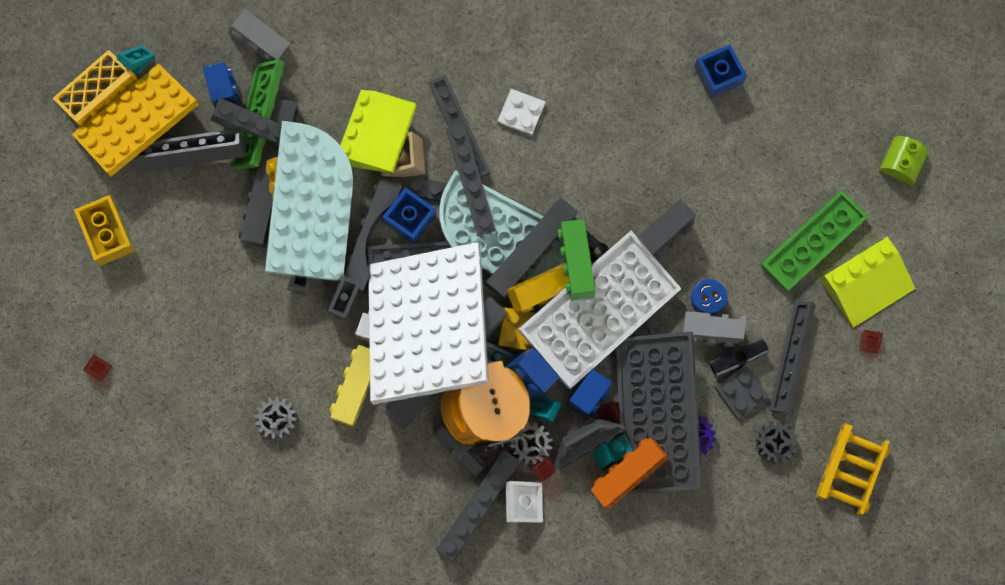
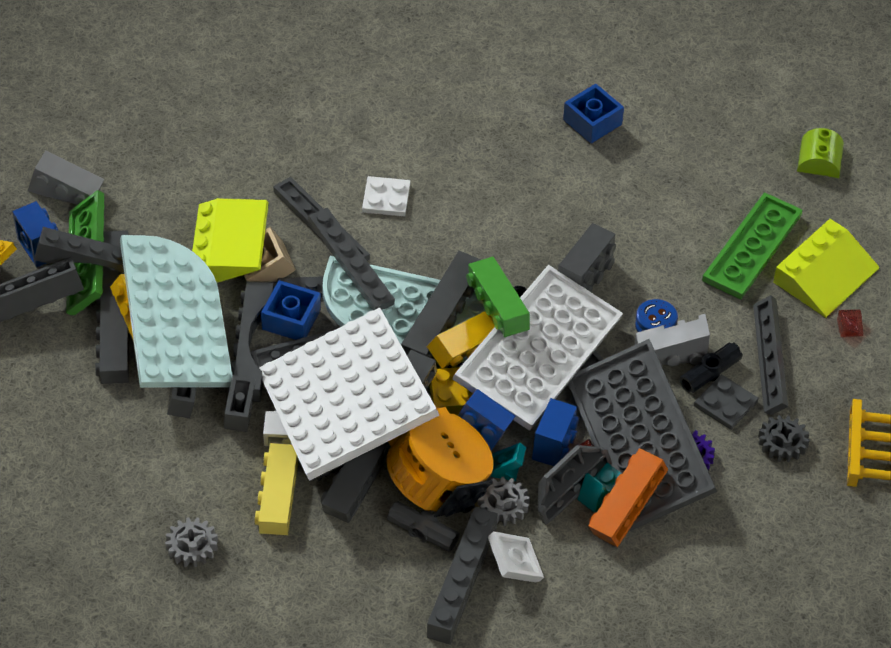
camera: 15 degrees left, 25 degrees down
(544, 470) = (528, 522): clear red slope -> none

